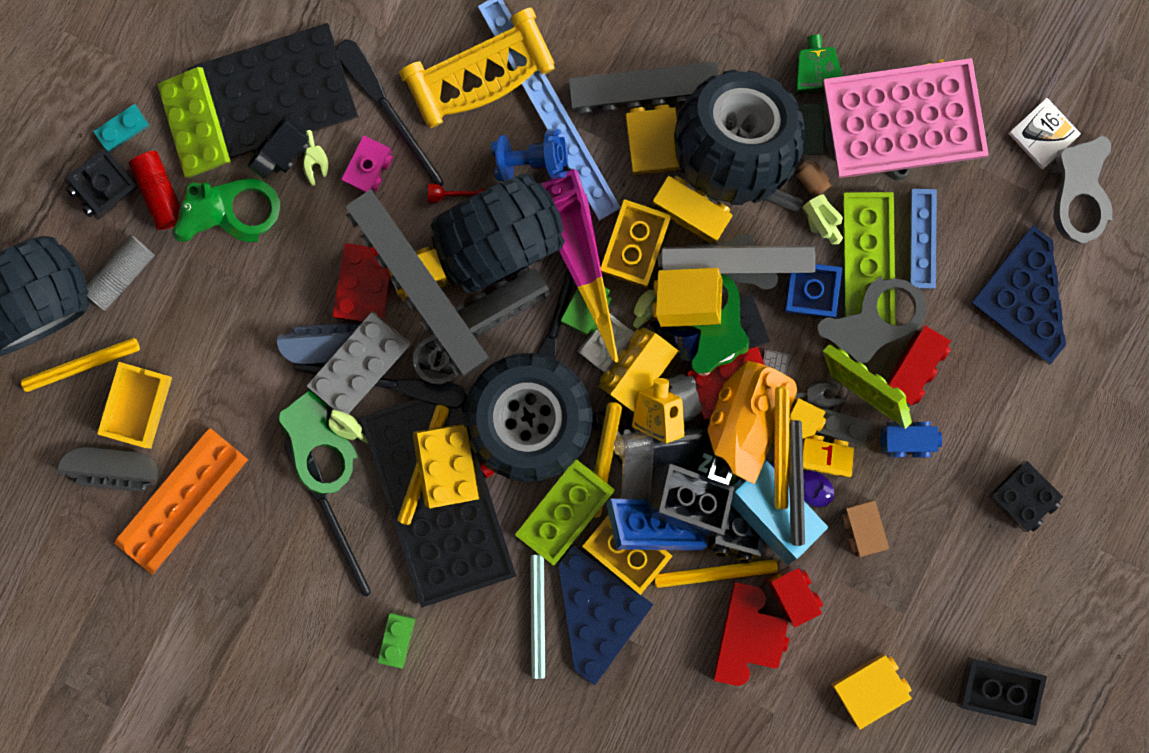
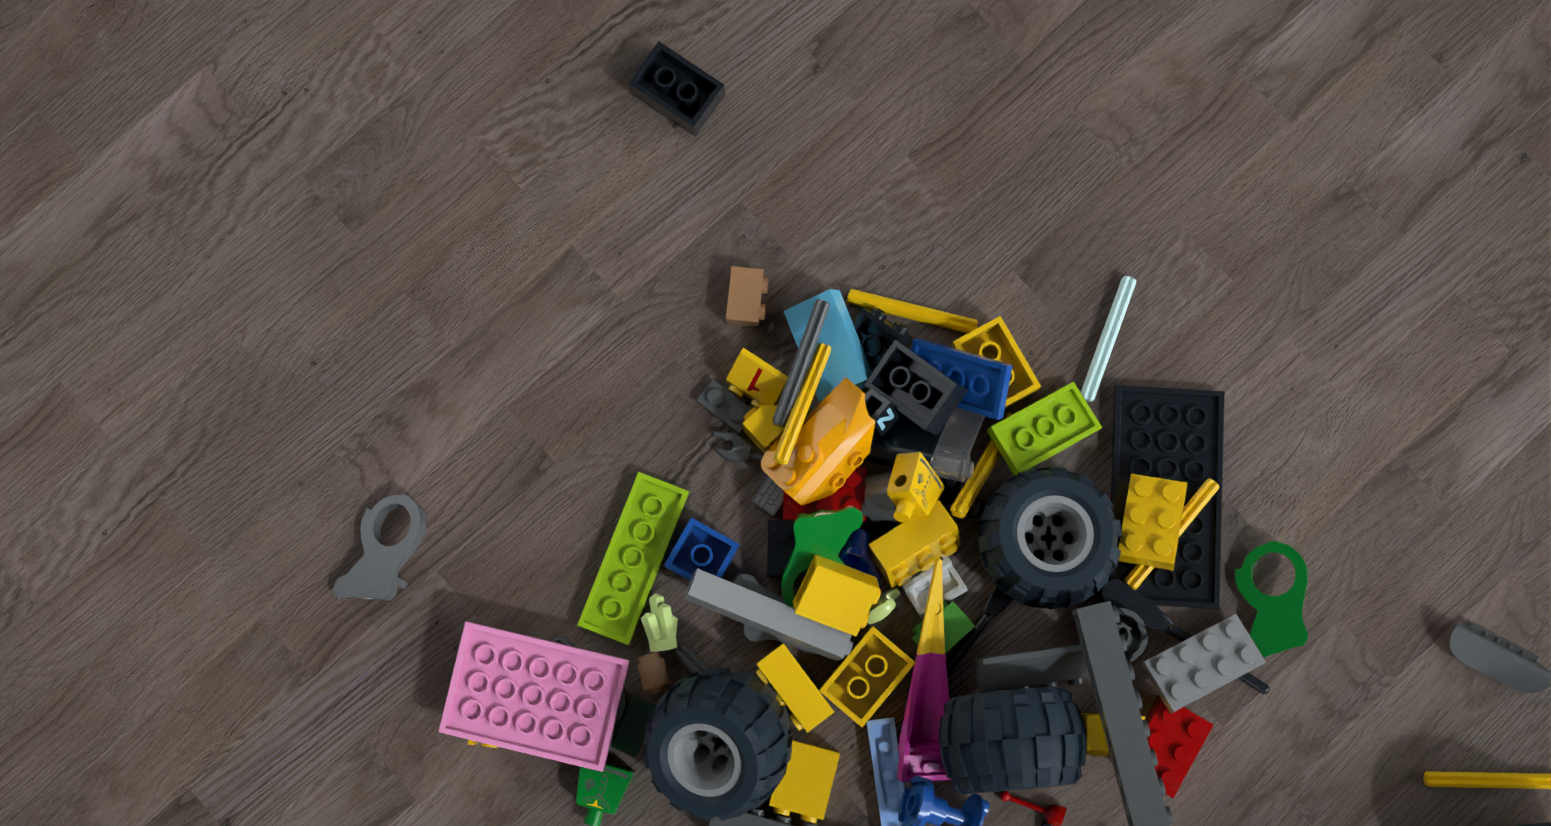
camera: 160 degrees left, 5 degrees down
(134, 405) = (1453, 713): yellow piece -> none
(181, 501) = (1433, 596): orange plate -> none
(314, 342) = (1239, 706): sand blue brick -> none
(333, 523) = (1286, 568): black piece -> none
(346, 426) = (1237, 605): yellowish green hand -> none
(396, 640) = (1261, 368): bright green brick -> none
(599, 613) = (1047, 317): dark blue plate -> none
(748, 636) = (904, 236): red brick -> none
(794, 595) = (846, 254): red brick -> none
(817, 489) = (778, 353): dark purple piece -> none
(867, 332) = (665, 489): dark grey animal -> none
(868, 386) = (686, 428): lime plate -> none
(872, 690) = (803, 138): yellow brick -> none
(918, 363) = (629, 435): red brick -> none
(918, 439) = (666, 365): blue brick -> none
(923, 238) = (566, 565): medium blue plate -> none
(1025, 296) = (487, 465): dark blue plate -> none
(1026, 497) = (573, 265): black brick -> none
(1044, 133) = (396, 625): slope -> none

